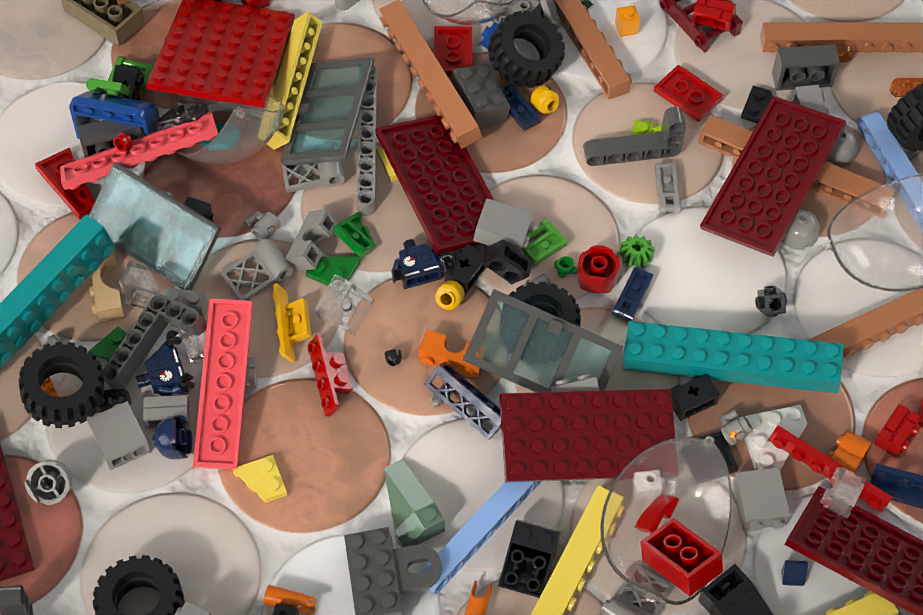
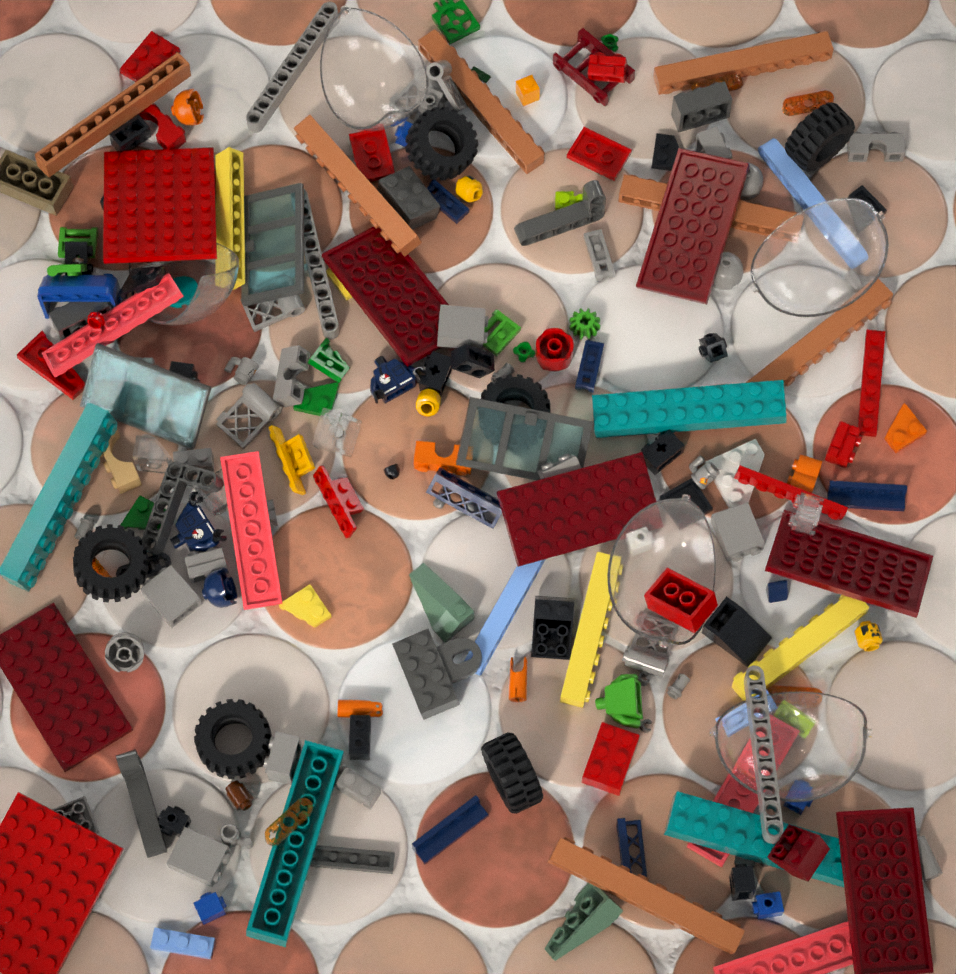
camera: 10 degrees left, 10 degrees up
(660, 508) = (649, 569): red slope -> none

